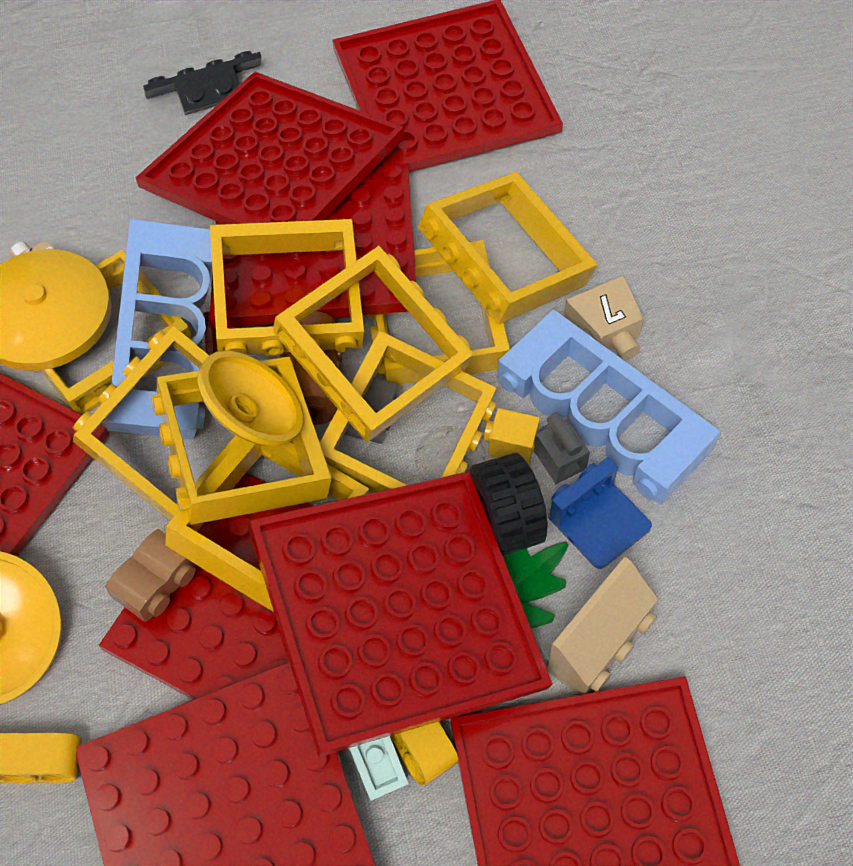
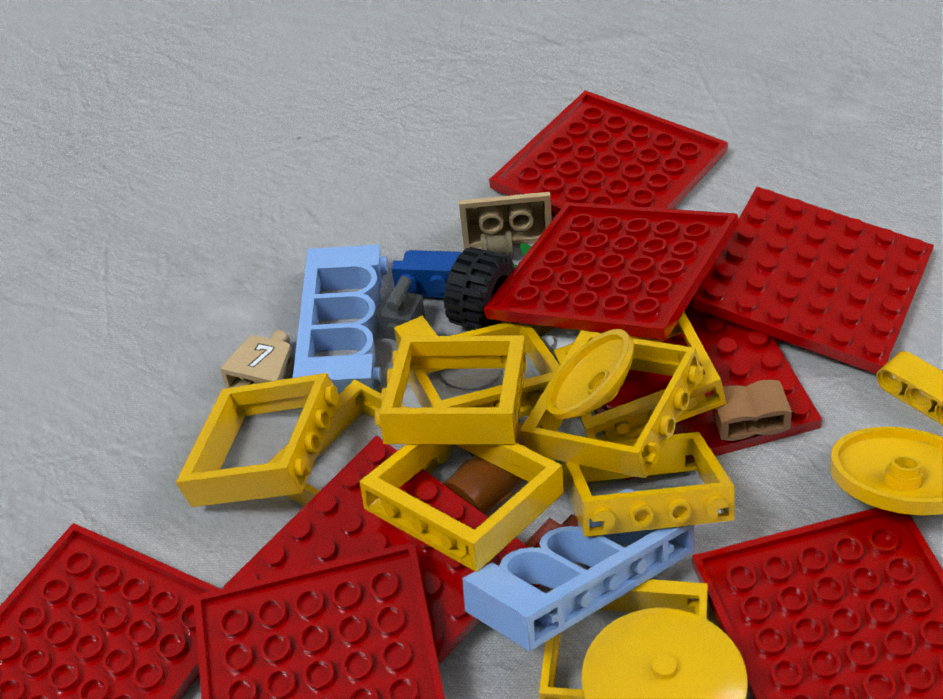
camera: 130 degrees left, 15 degrees down
(575, 598) = (499, 244): none -> dark tan bush

